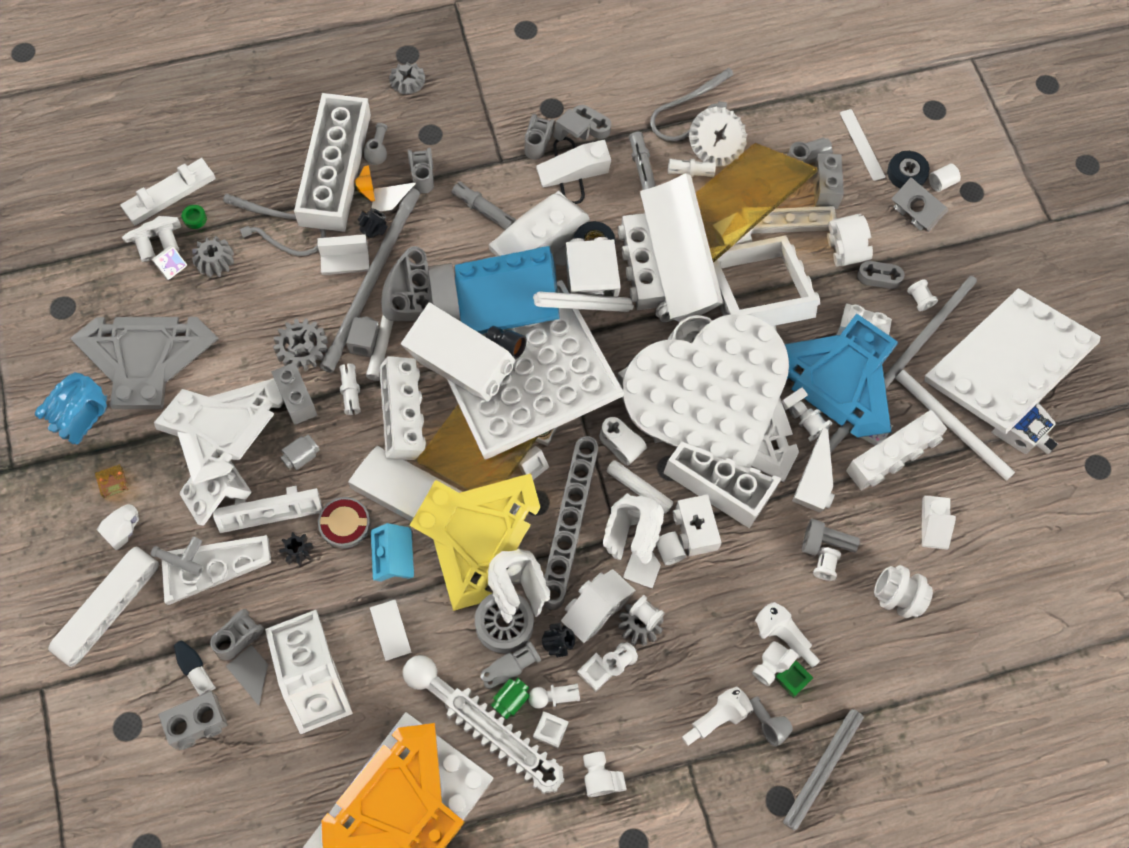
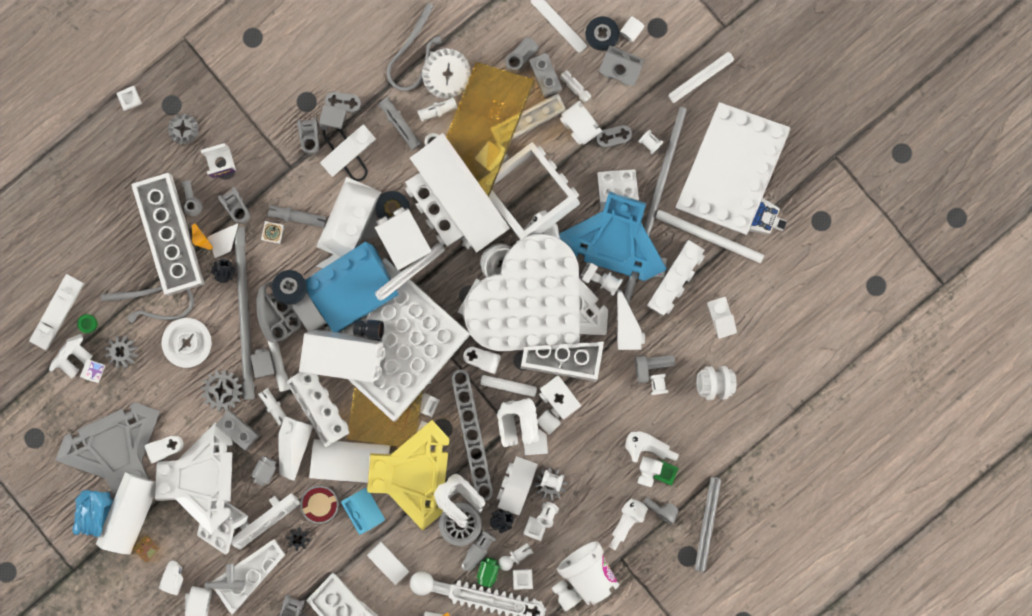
camera: 15 degrees left, 20 degrees up
(111, 427) = (127, 514): none -> white slope
(199, 376) = (161, 449): none -> white piece
(274, 281) = (173, 342): none -> white gear
(343, 254) = (215, 305): white panel -> none
(350, 433) = (292, 445): none -> white slope
(367, 30) = (129, 98): none -> white tile
(429, 116) = (215, 152): none -> white piece
(433, 268) = (284, 295): none -> black bush
(448, 212) = (272, 232): none -> tile
(643, 756) = (589, 573): none -> white piece
(855, 204) = (575, 86): none -> white axle
(1005, 256) = (701, 77): none -> white axle

